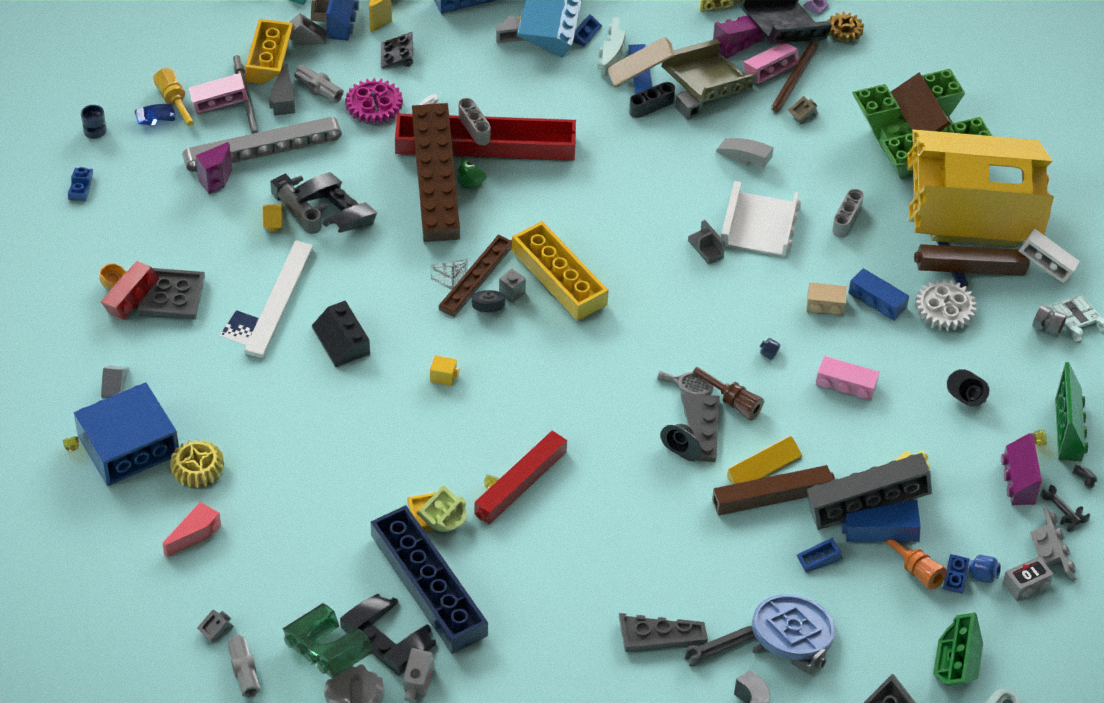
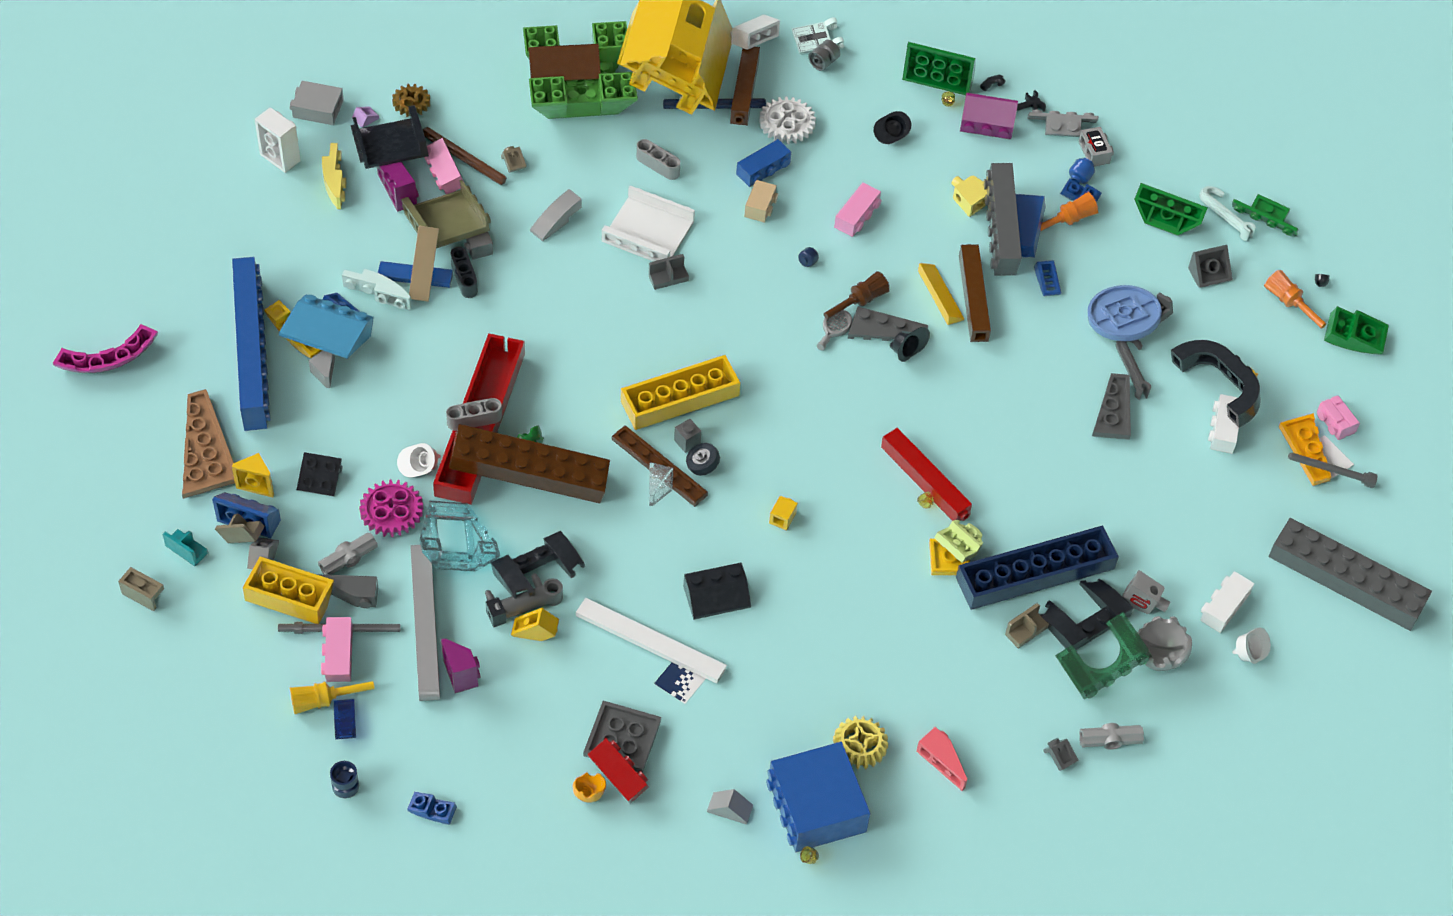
camera: 80 degrees left, 5 degrees up
(324, 140) = (474, 558): none -> clear light blue windscreen
(359, 580) = (1026, 626): none -> dark tan panel

